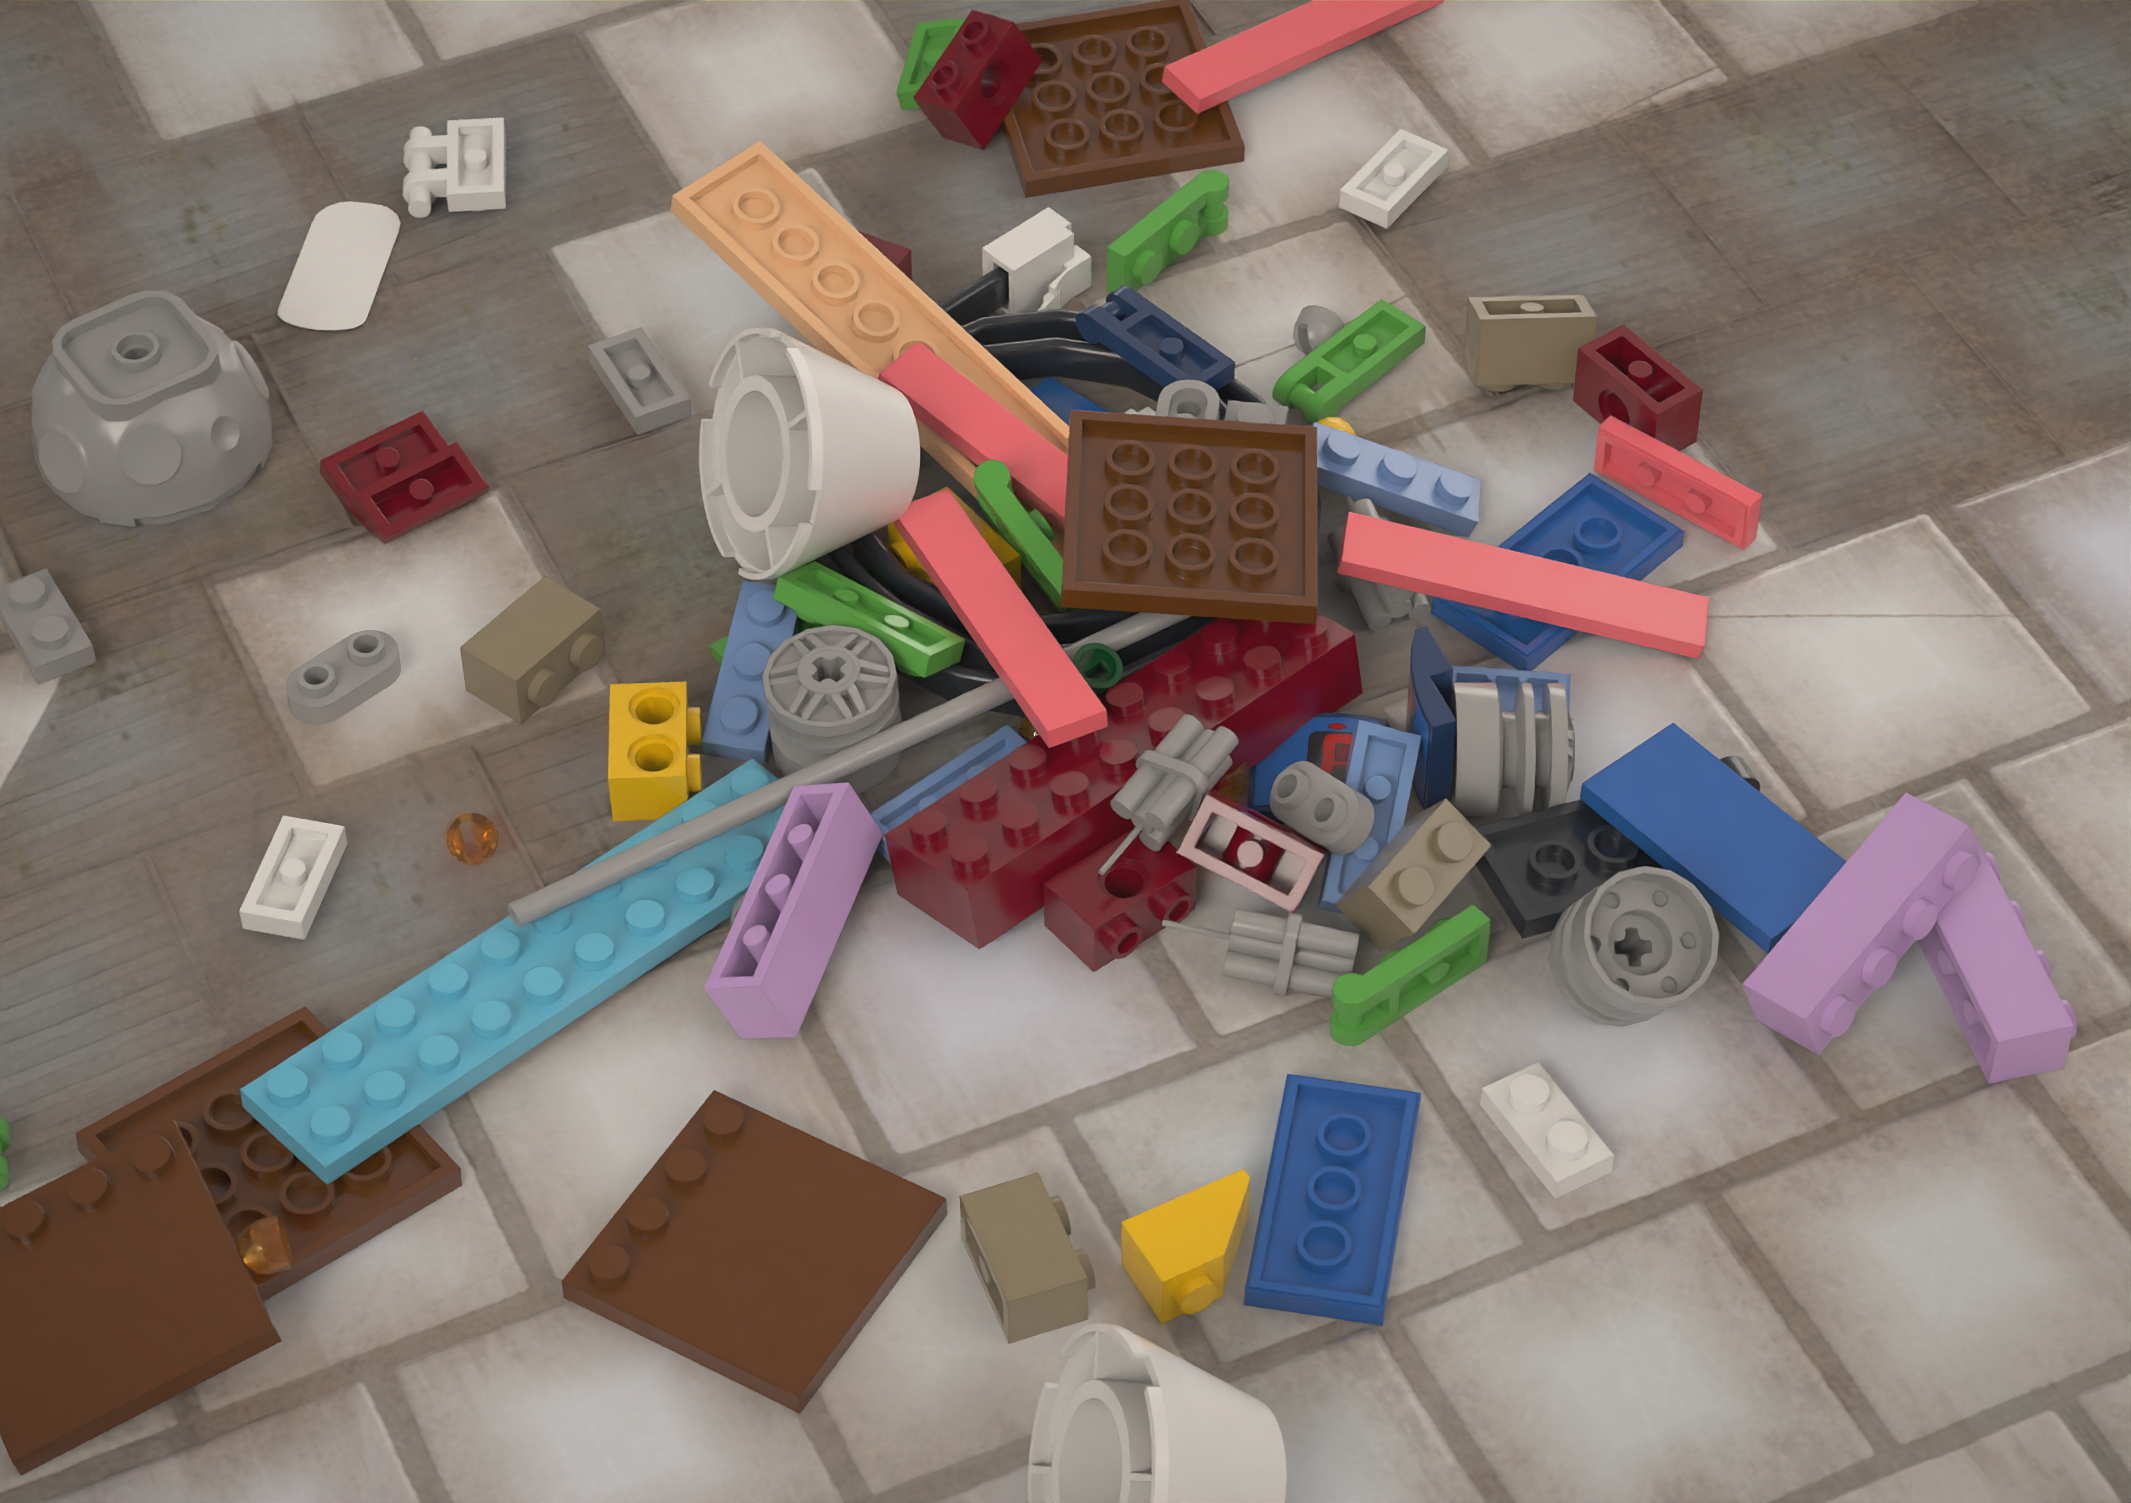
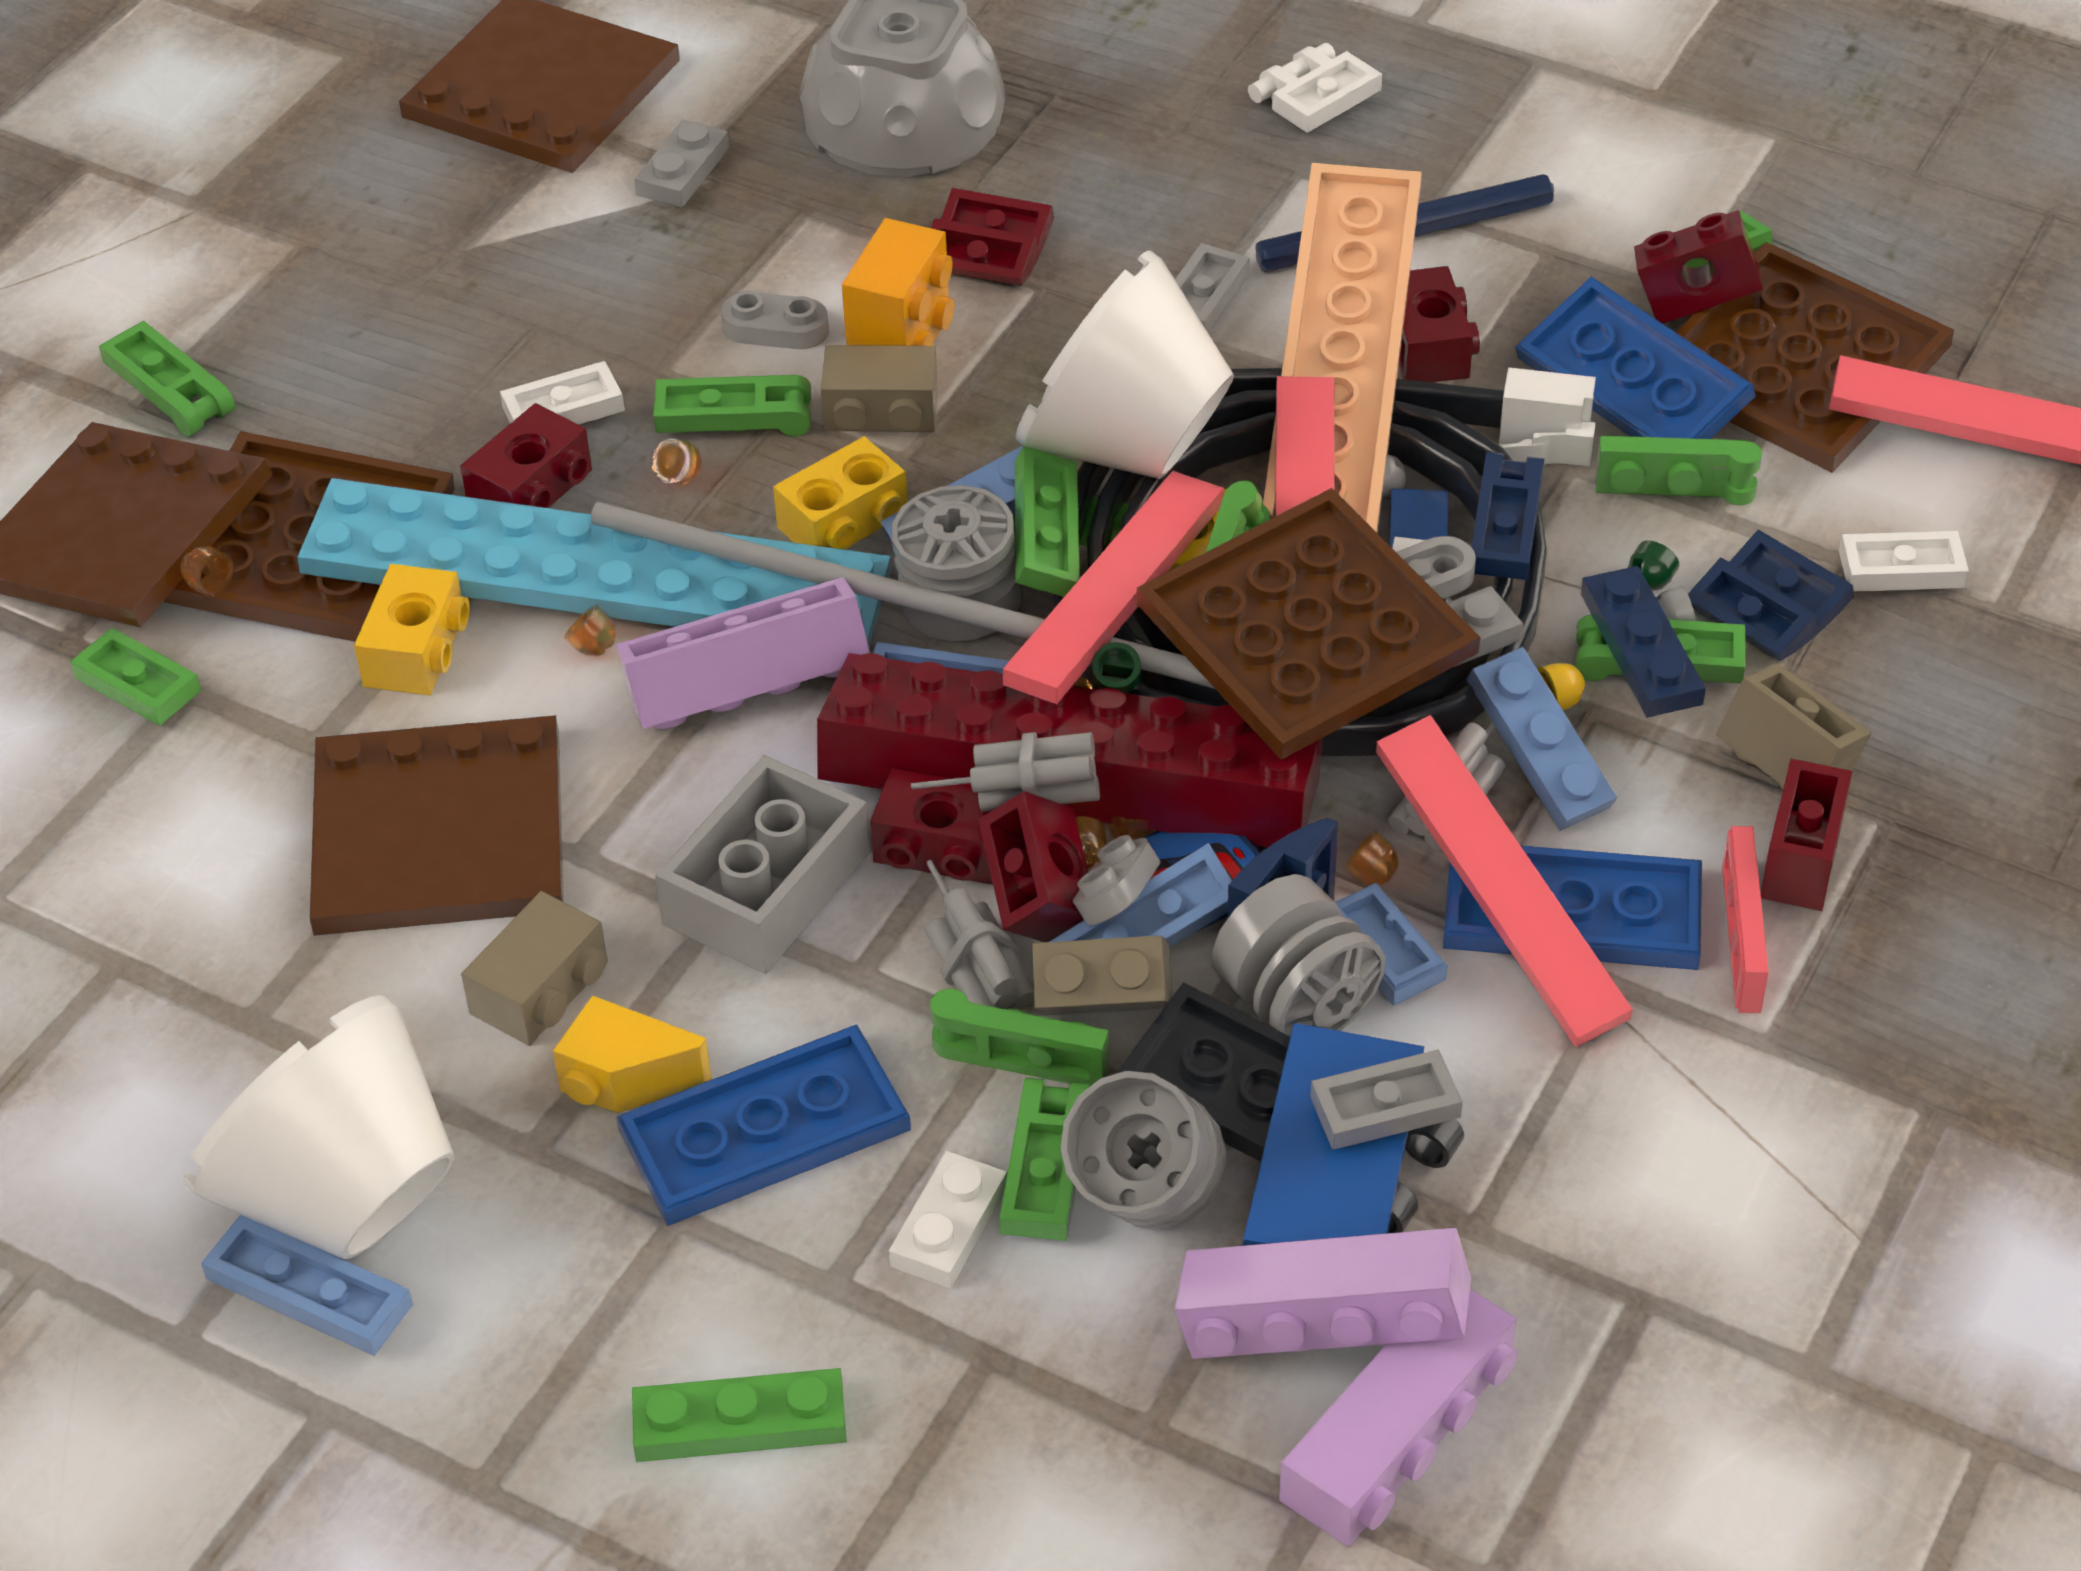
camera: 55 degrees right, 0 degrees up
(330, 1383) = (135, 676): none -> bright green plate
(340, 266) = (1165, 95): white sticker -> none
(364, 938) = (529, 460): none -> dark red brick
(432, 763) = (733, 404): none -> bright green plate
(451, 561) = (899, 288): none -> light orange brick
(497, 1137) = (411, 629): none -> yellow brick
(615, 1006) = (592, 632): none -> clear orange hinge
(678, 240) = (1435, 215): none -> dark blue axle
(988, 187) = (1644, 372): none -> blue tile
(1065, 1029) = (764, 863): none -> light grey brick
(1254, 313) = (1656, 563): none -> dark green hinge
(1349, 361) = (1642, 641): none -> dark blue plate
(1351, 267) = (1772, 593): none -> dark blue slope
(1396, 655) = (1373, 860): none -> clear orange hinge
(1544, 1029) = (1037, 1188): none -> bright green plate
(1637, 1377) = (738, 1415): none -> bright green plate
(1723, 768) = (1385, 1099): none -> light grey plate

